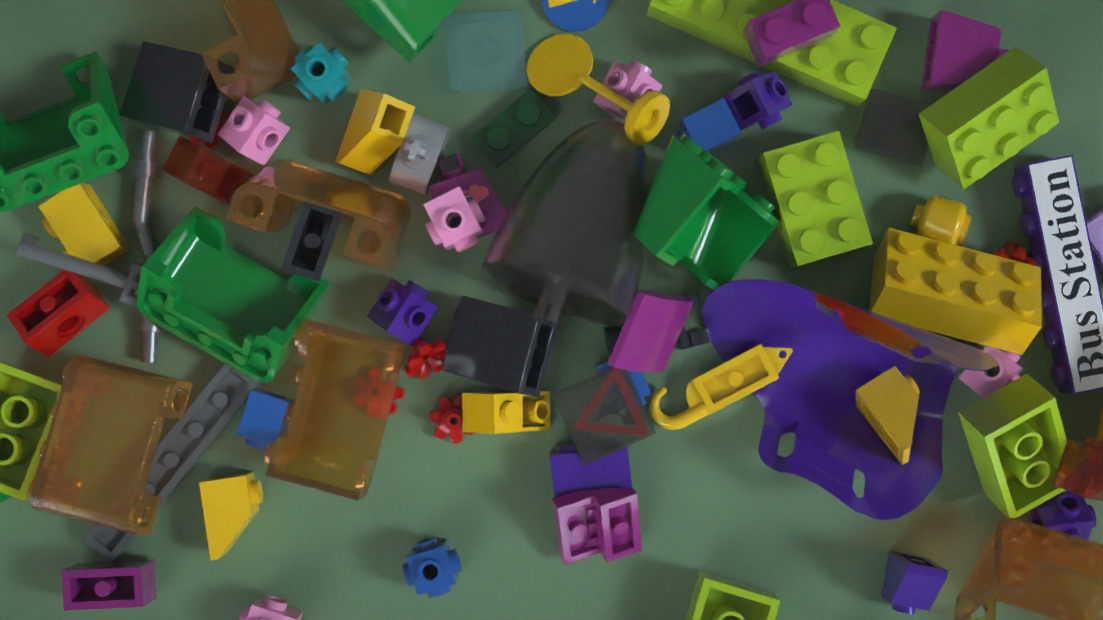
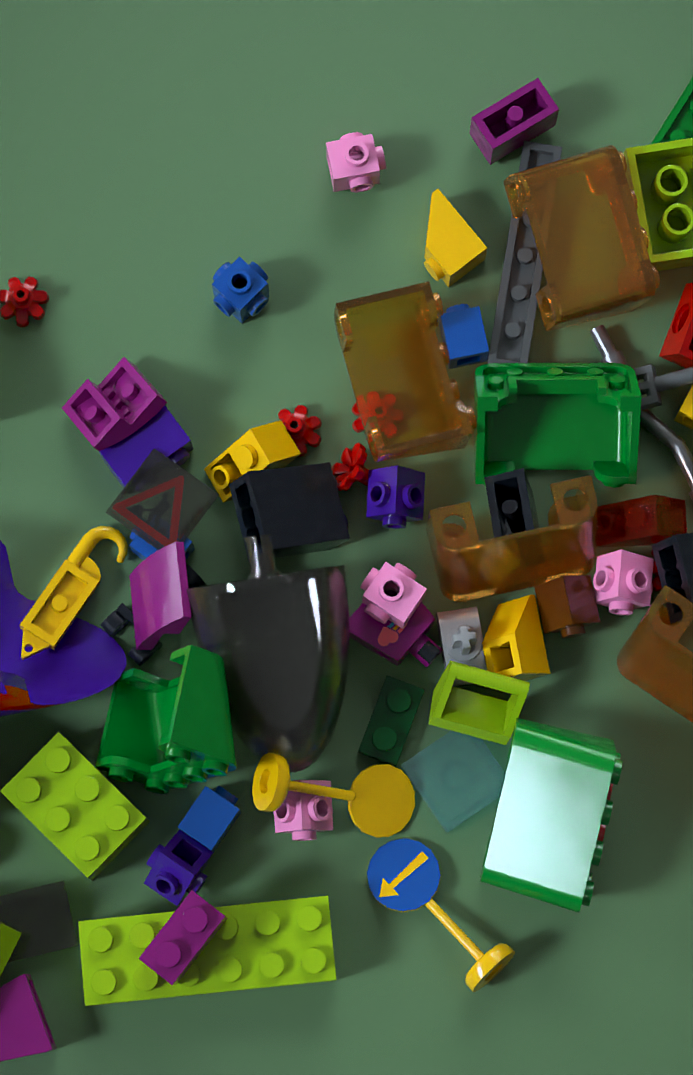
camera: 150 degrees right, 10 degrees down
(313, 136) = (567, 605): none -> reddish brown brick
(329, 84) = (587, 681): teal brick -> none
(435, 95) = (474, 712): none -> lime tile

